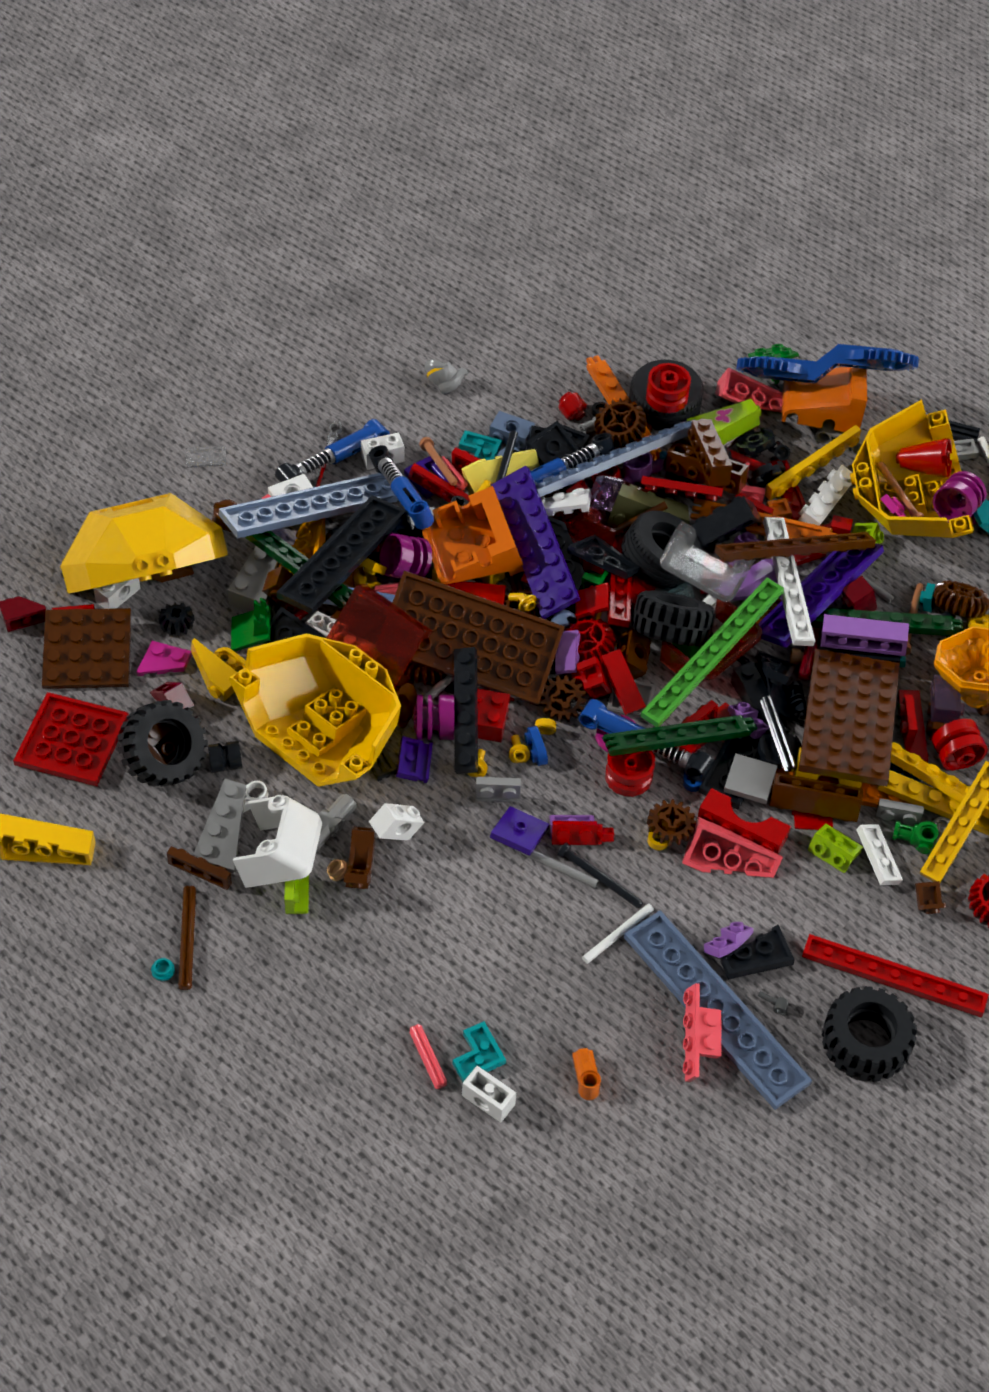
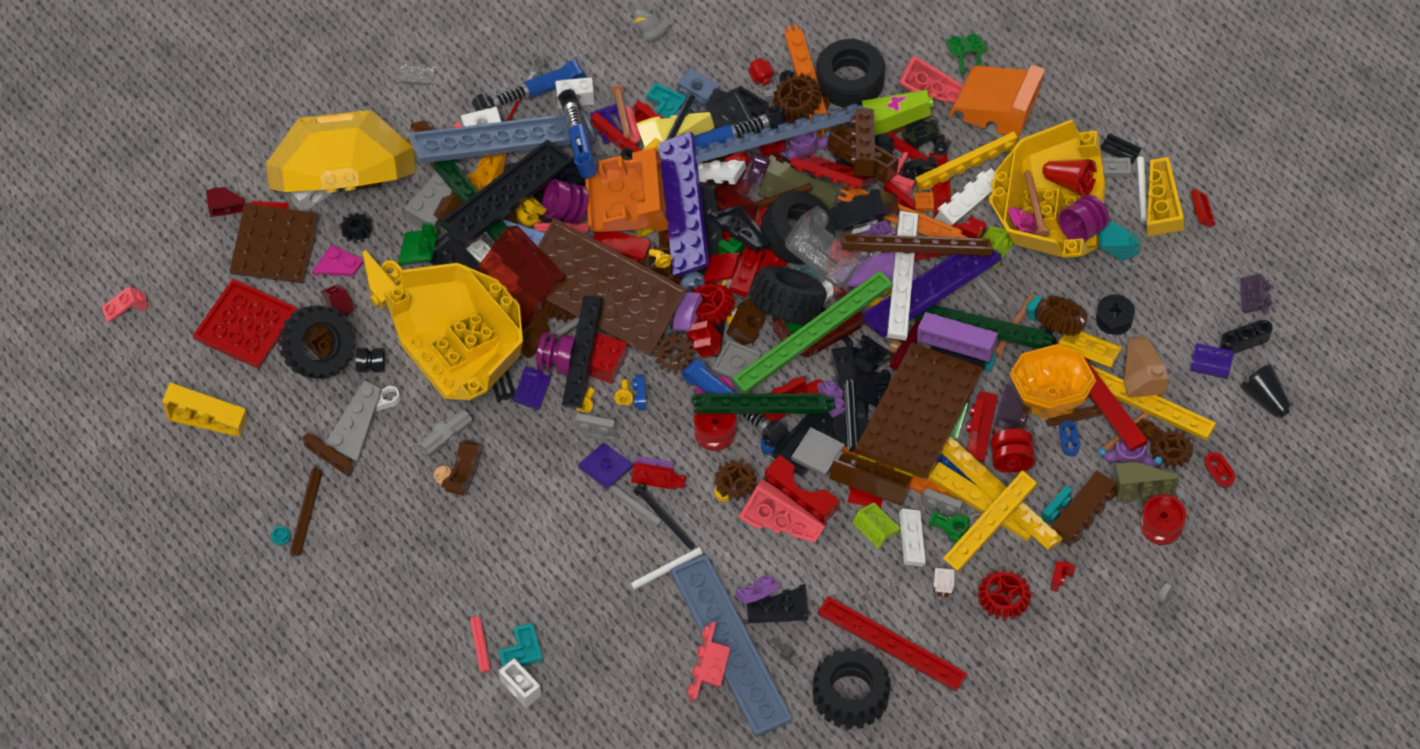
camera: 15 degrees right, 5 degrees up
(291, 852) = (406, 448): white windscreen -> none
(297, 896) = (403, 486): lime bracket -> none
(396, 821) = (500, 441): white brick -> none
(546, 726) = (653, 376): yellow tile -> none
(586, 1073) = (606, 680): orange piece -> none
(622, 682) = (728, 346): red tile -> none
(668, 387) = (846, 70): red wheel -> none
(841, 355) = (1013, 61): blue beam -> none
(859, 595) = (967, 299): dark red slope -> none

